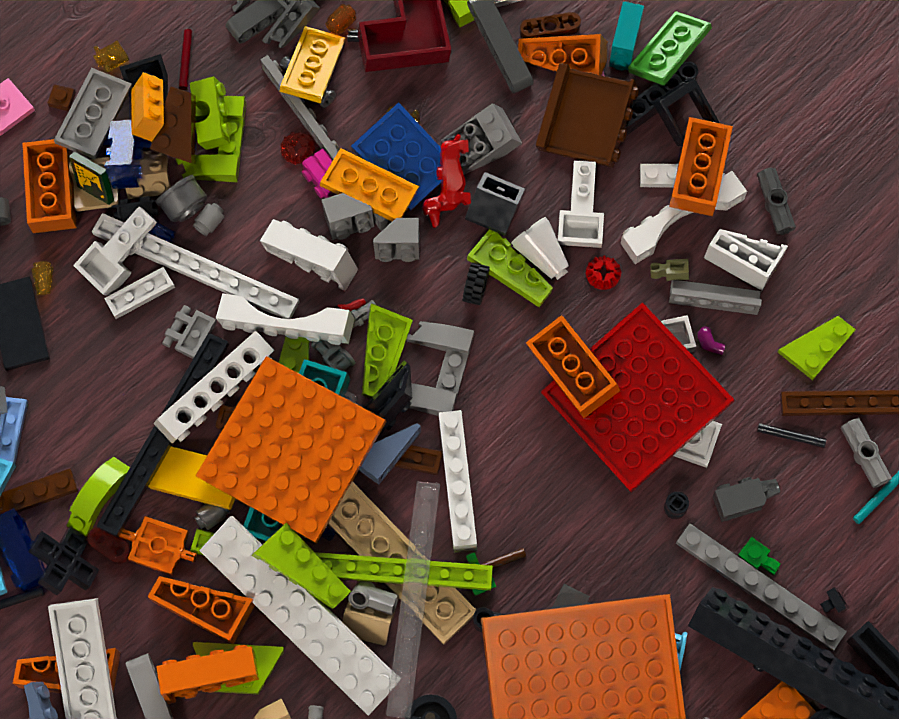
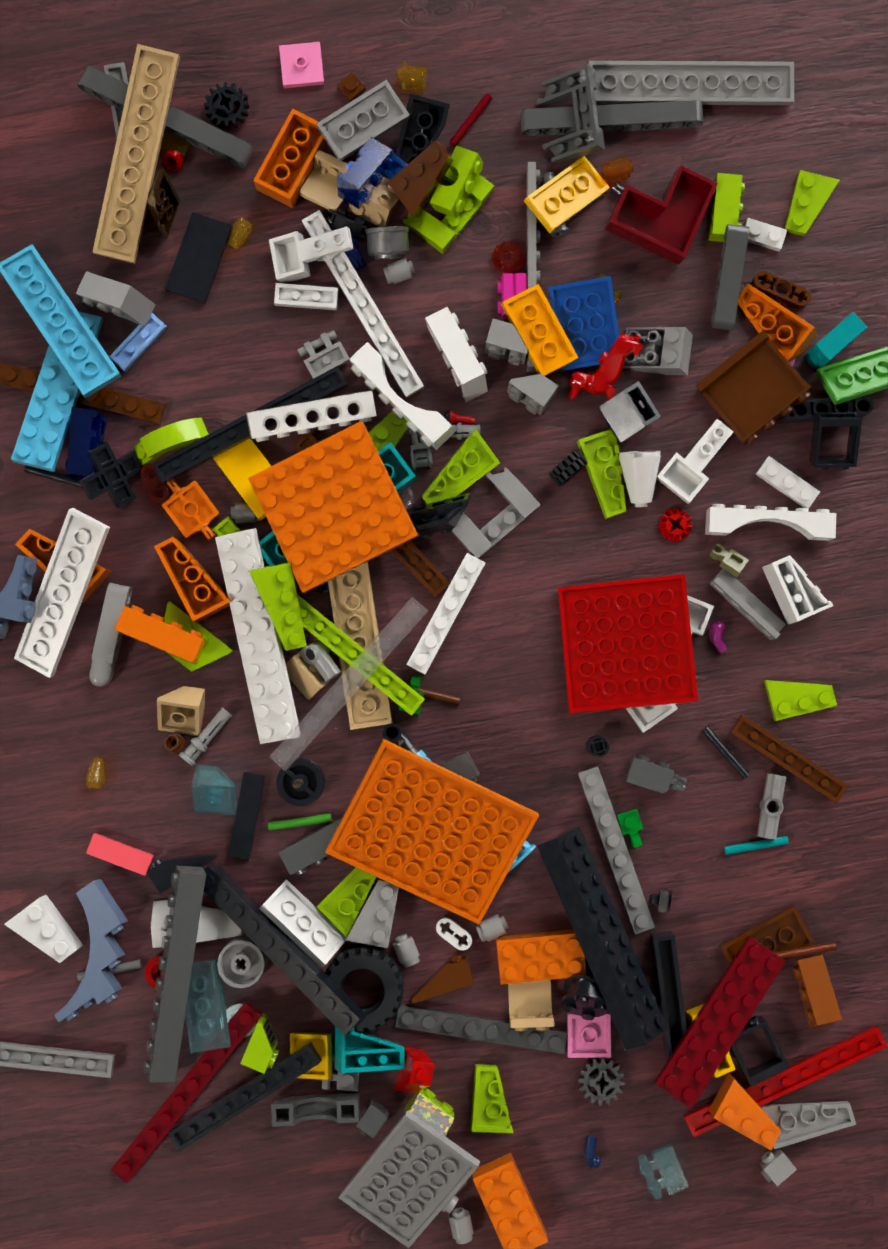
camera: 30 degrees right, 15 degrees up
(91, 178) = (326, 176): tile -> none
(147, 107) = (407, 145): light orange brick -> none
(387, 453) = (407, 557): sand blue slope -> none
(573, 366) = (593, 588): orange brick -> none
(701, 166) = (812, 495): orange brick -> none
(772, 189) = (848, 573): dark grey piece -> none

